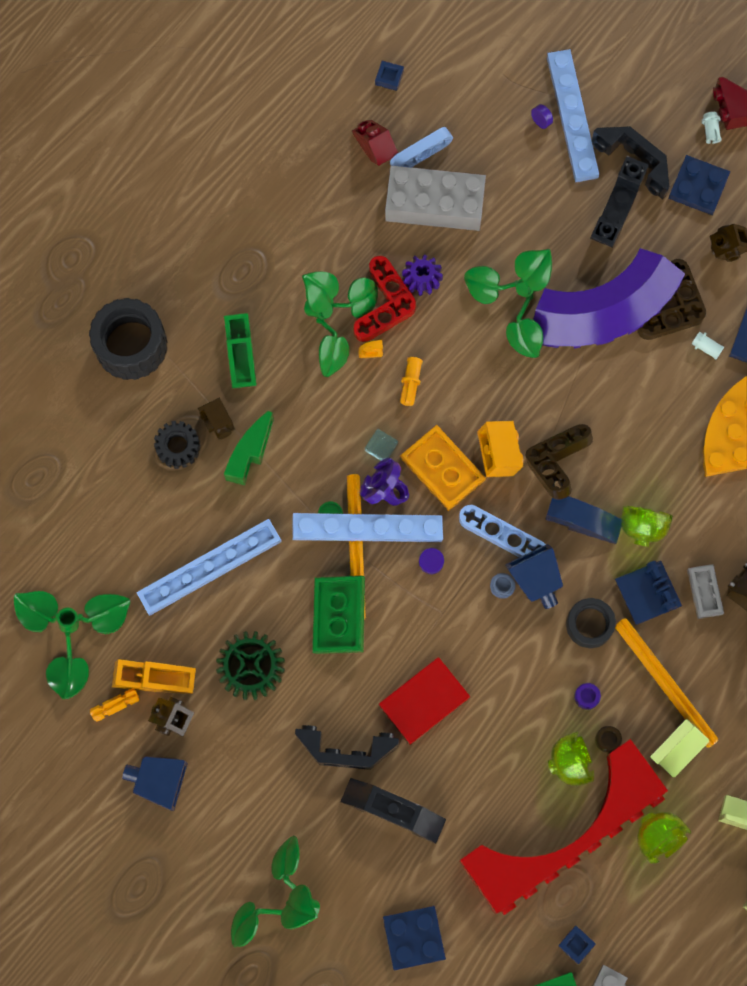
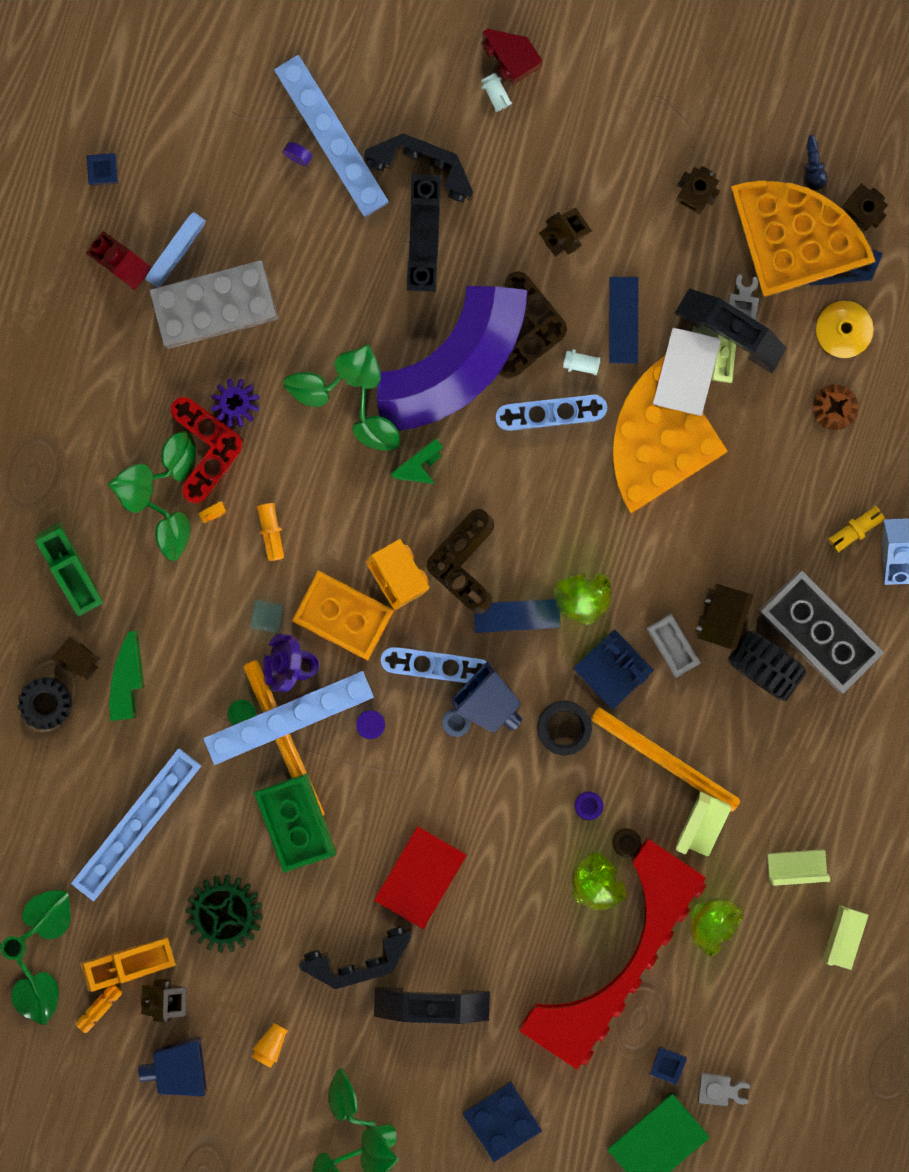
camera: 30 degrees left, 15 degrees up
(241, 792) = (269, 1046): none -> light orange cone
(543, 374) = (412, 469): none -> green slope
(668, 378) = (551, 415): none -> light blue beam
(699, 185) = (506, 168): dark blue plate -> none

